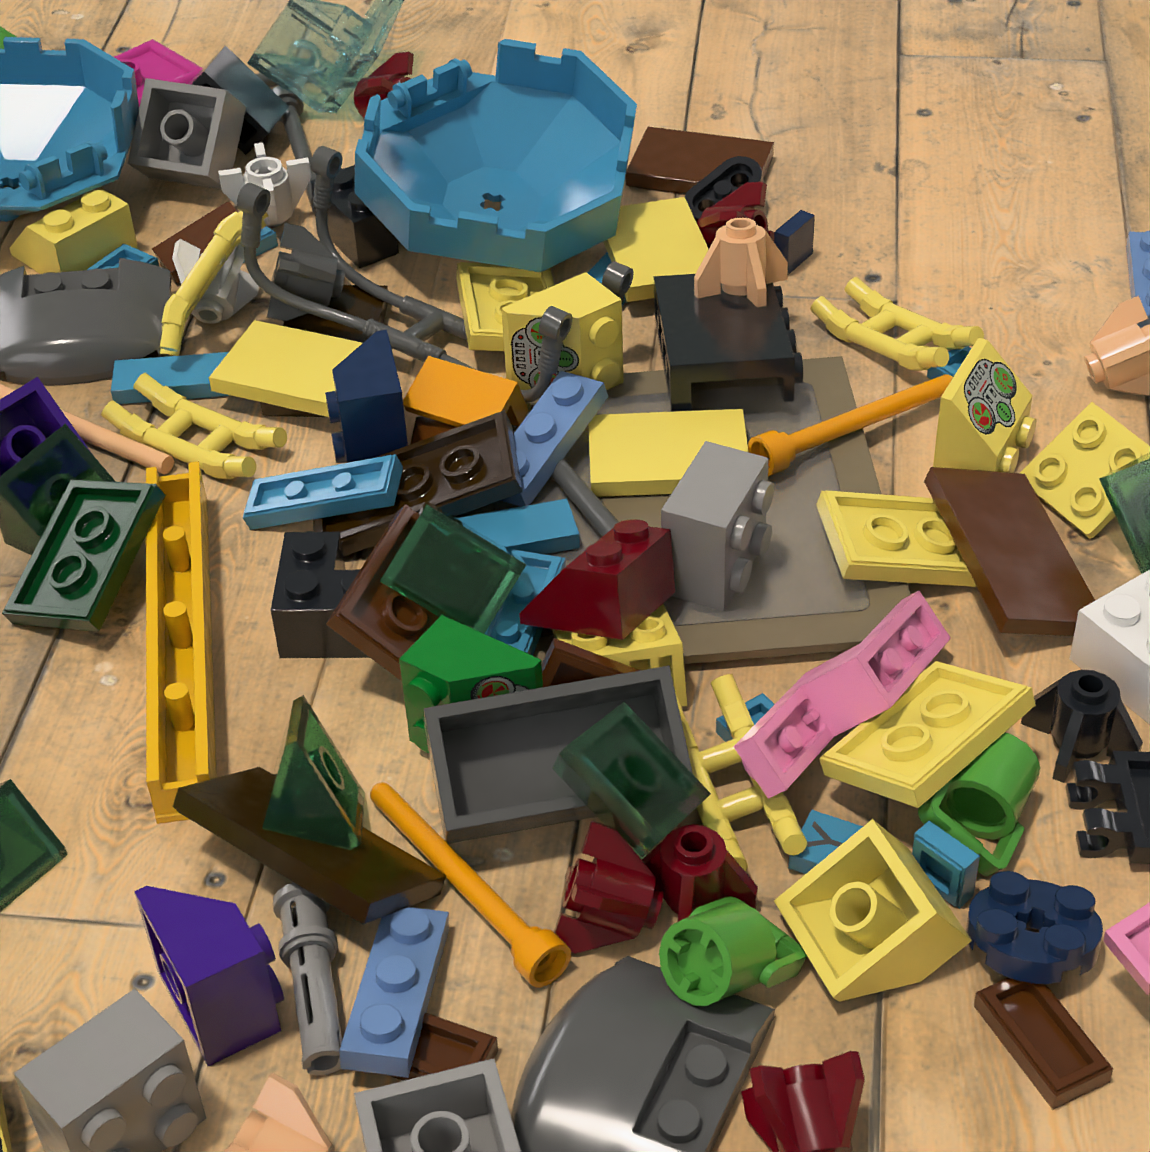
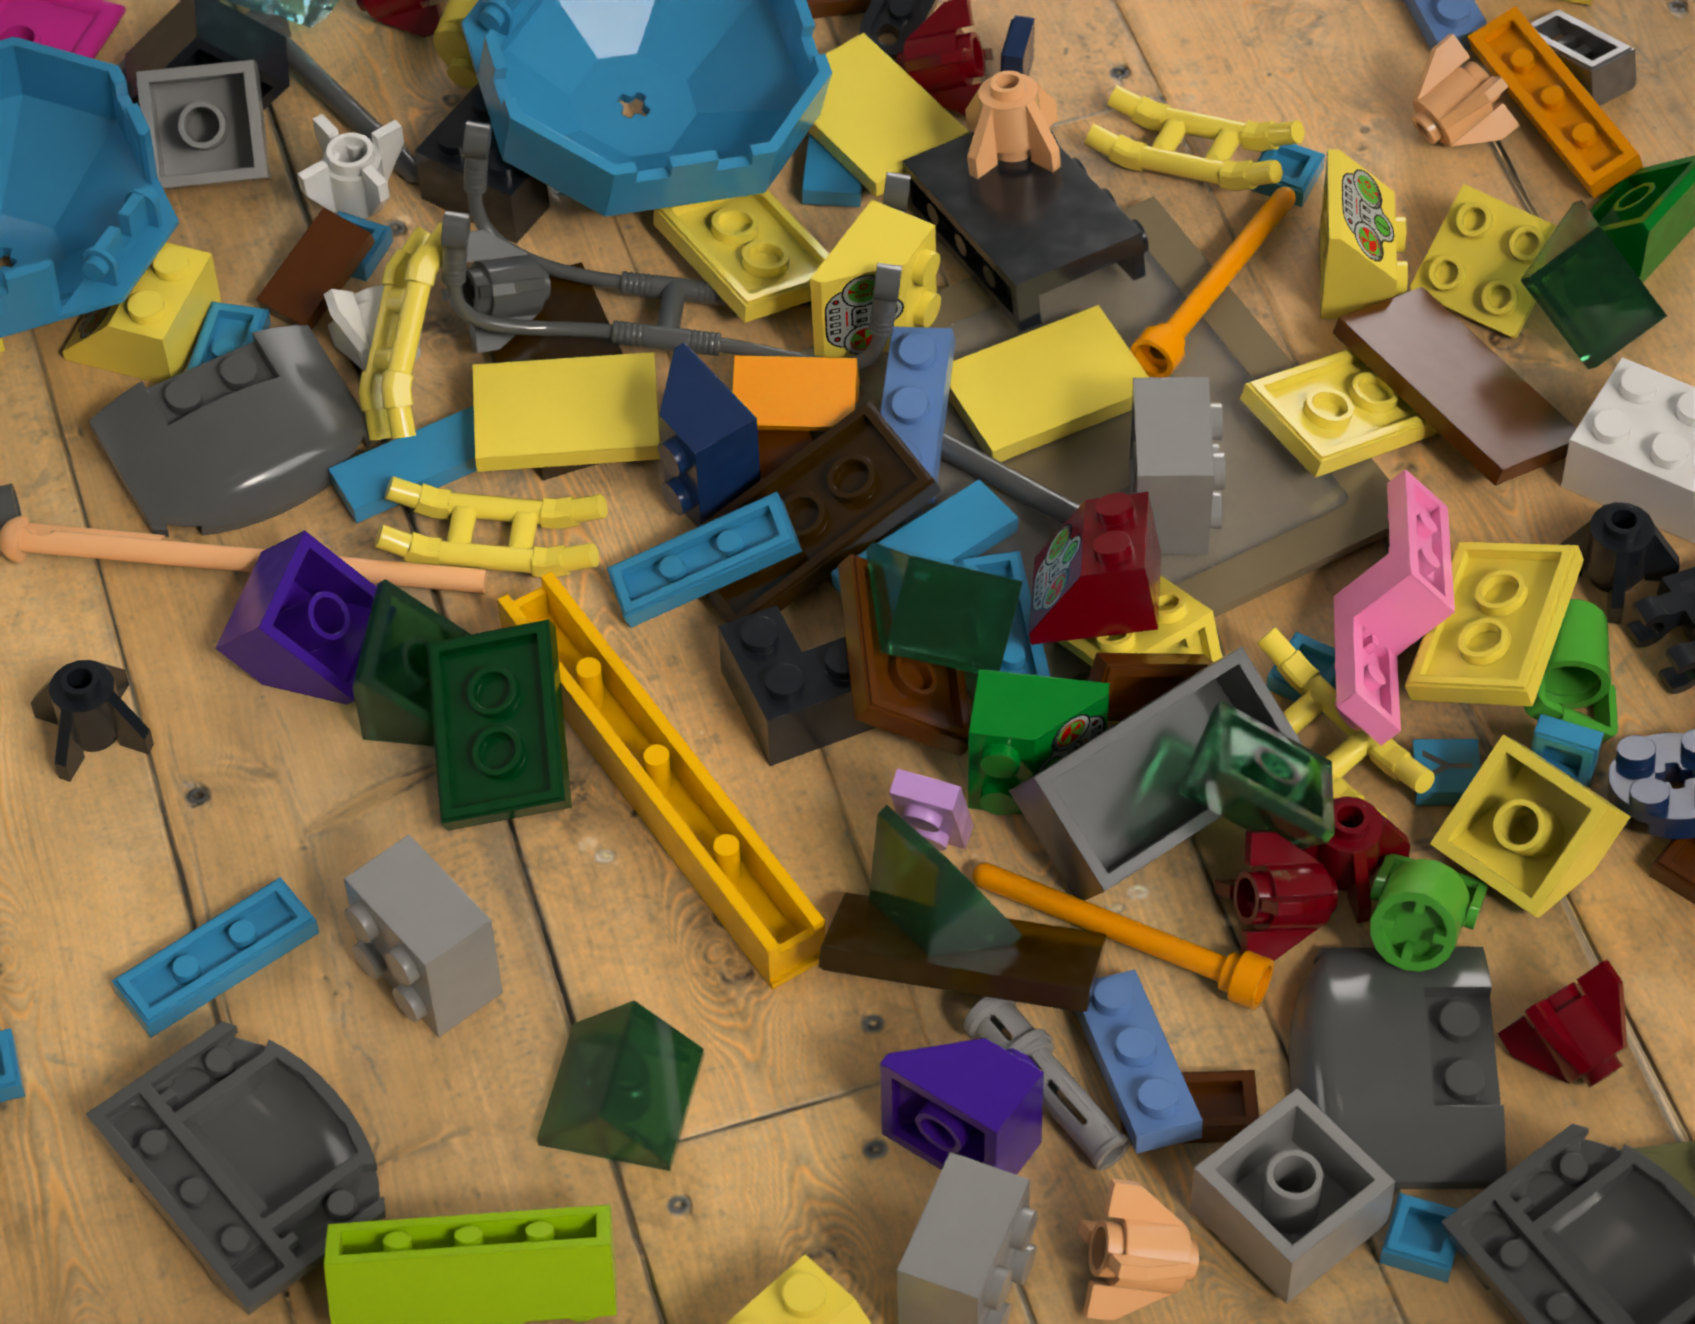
camera: 25 degrees left, 10 degrees up
(352, 719) = (932, 809): none -> lavender plate

